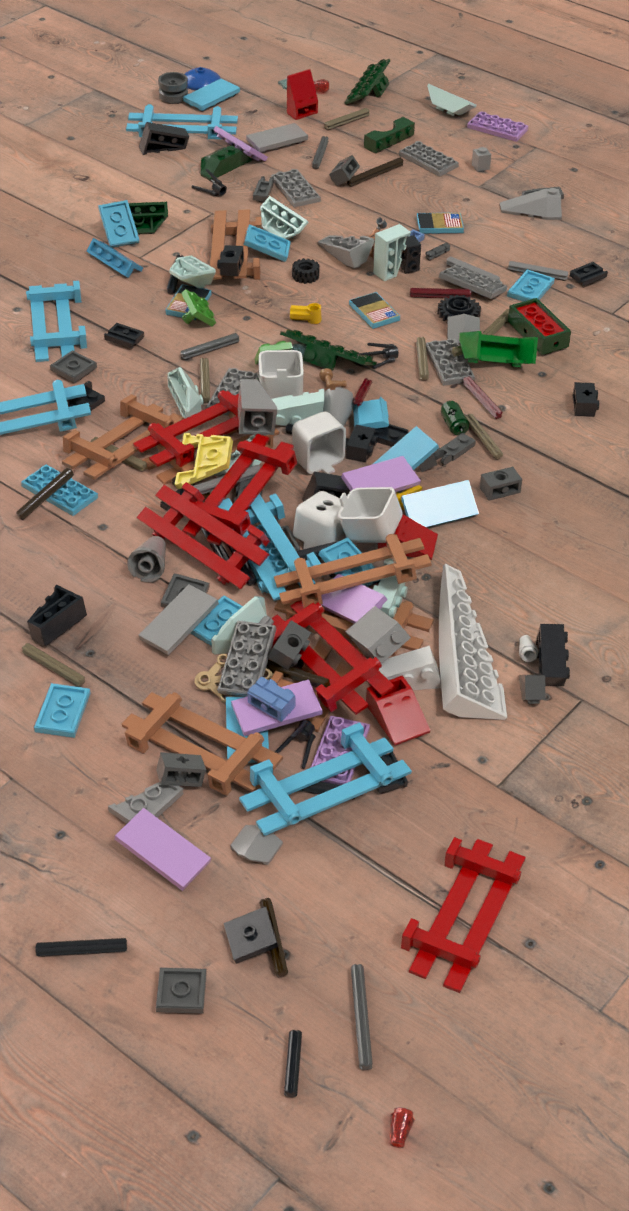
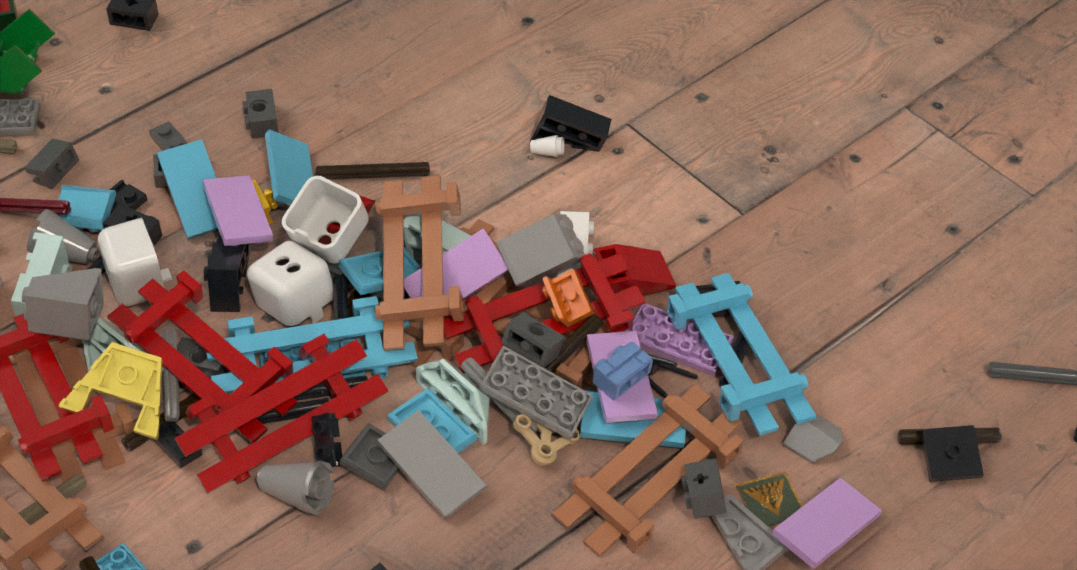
camera: 80 degrees left, 5 degrees up
(181, 990) = (1026, 530): dark grey plate -> none
(190, 820) = (770, 498): none -> clear yellow piece
(194, 560) = (325, 429): none -> black hinge
(335, 657) = (567, 298): none -> orange bracket
(412, 395) = (52, 163): none -> dark grey hinge
(435, 941) = (954, 307): red fence -> none
(454, 417) = (107, 130): dark green piece -> none
(465, 554) = (373, 170): none -> dark brown axle
(465, 665) = (607, 202): white wedge -> none
(483, 398) = (82, 100): axle -> none
(484, 437) = (161, 113): dark tan axle -> none
(532, 688) = (610, 152): dark grey slope -> none

